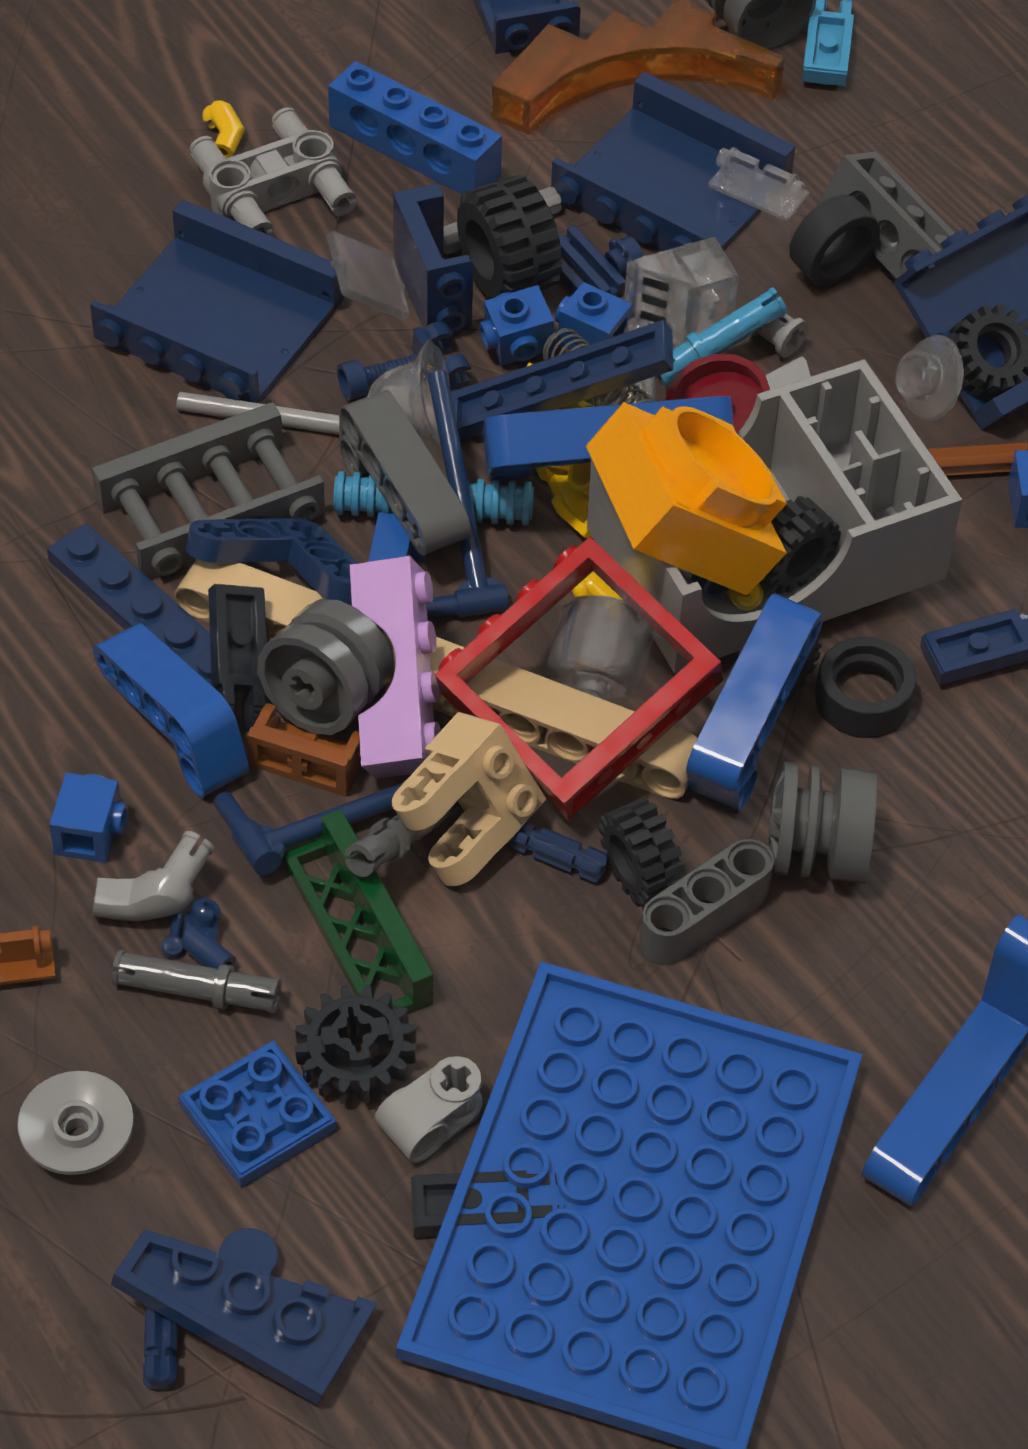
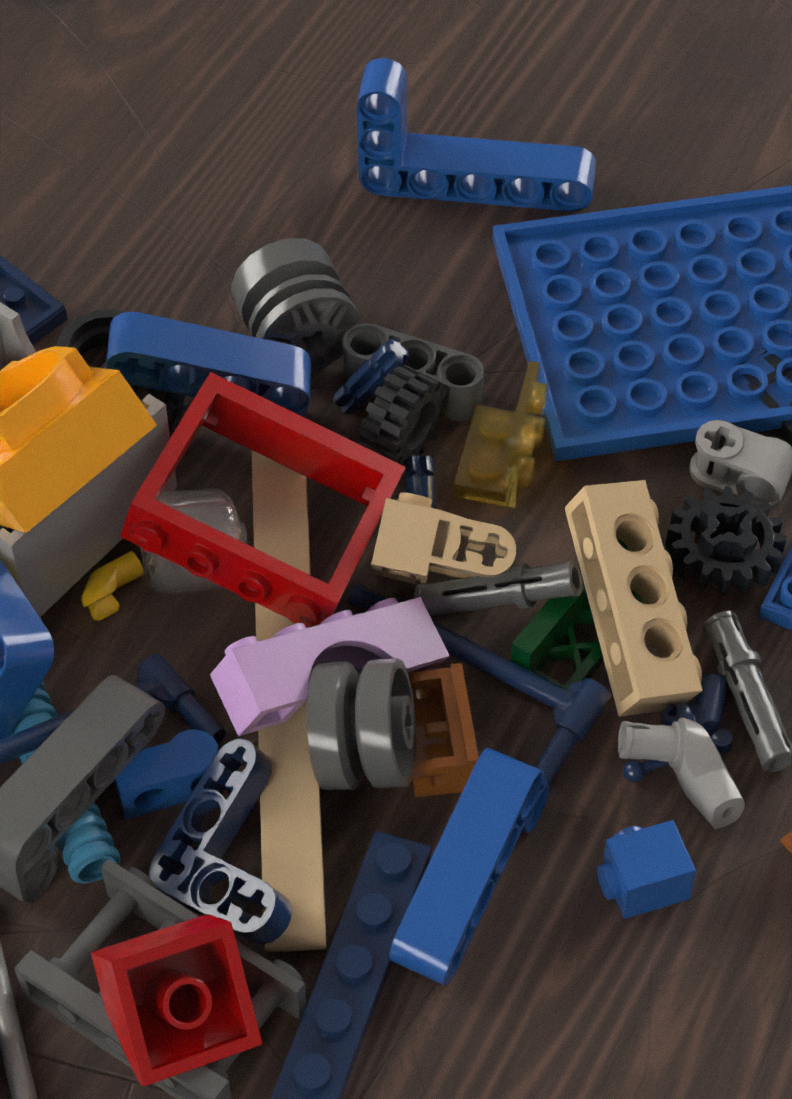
camera: 115 degrees left, 0 degrees up
(175, 461) = (177, 997): none -> red slope
(235, 643) = (378, 822): black hinge -> none
(247, 889) = (622, 623): none -> tan brick
(570, 926) = (499, 446): none -> clear yellow bracket
(701, 844) = (370, 376): none -> dark blue axle

